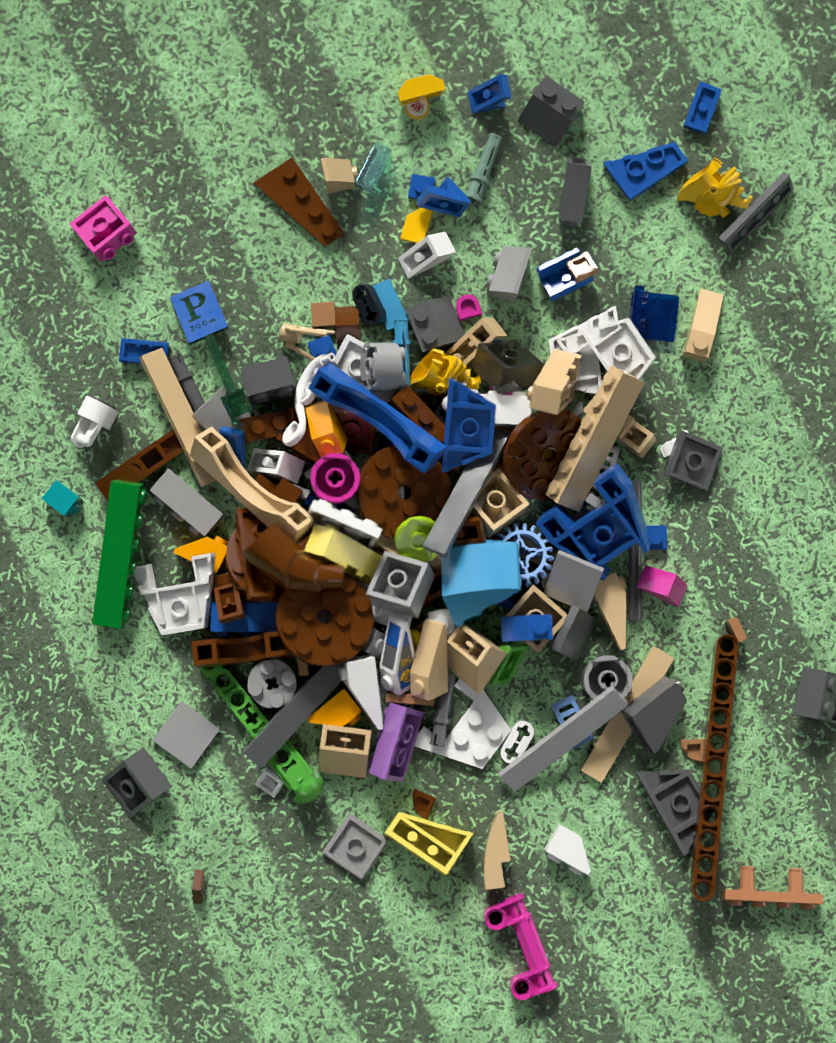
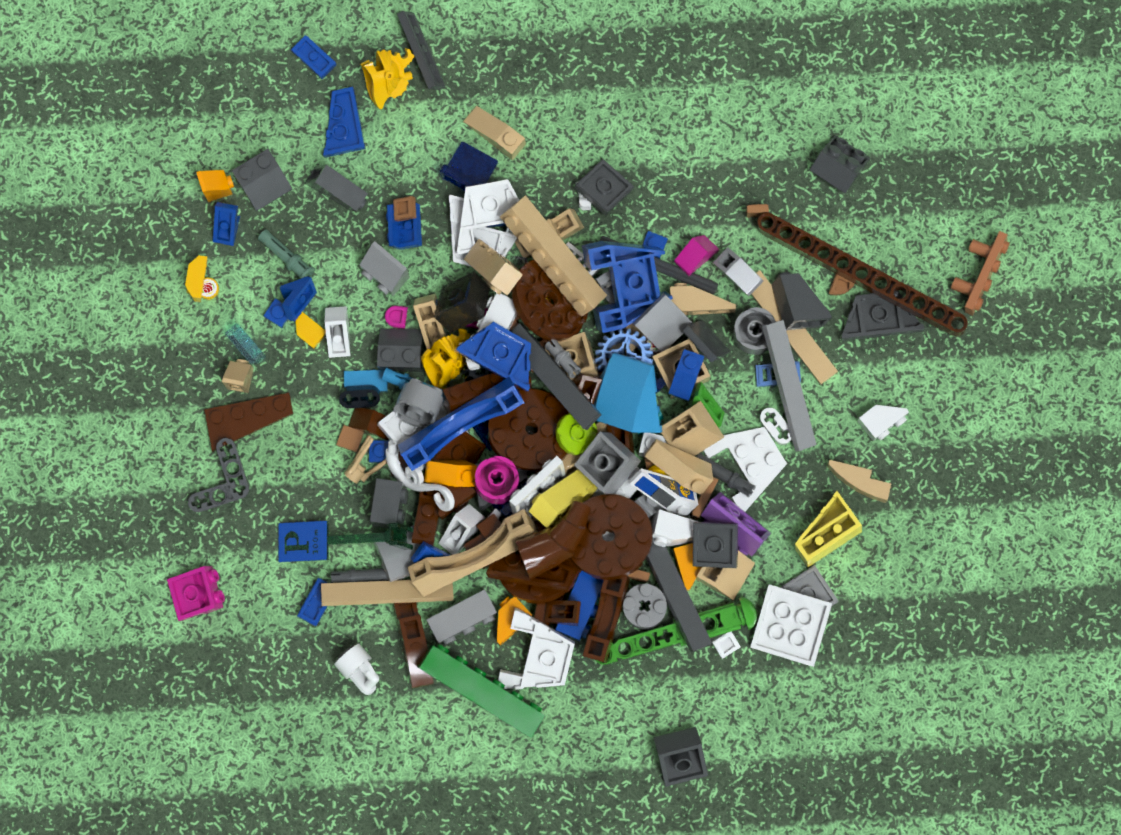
camera: 65 degrees left, 5 degrees down
(63, 499) = (414, 721): teal brick -> none
(186, 734) = (657, 698): light grey tile -> none
(197, 892) = (789, 740): reddish brown tile -> none
(223, 215) = (228, 487): none -> dark grey beam
(315, 842) = (791, 625): none -> white plate
(361, 731) = (715, 544): none -> dark grey tile
(423, 803) = (794, 524): reddish brown tile -> none
(490, 493) = (563, 358): none -> light grey pin
(525, 65) = (215, 184): none -> light orange slope
(530, 945) = (976, 487): dark pink piece -> none
(661, 636) = (738, 271): none -> slope

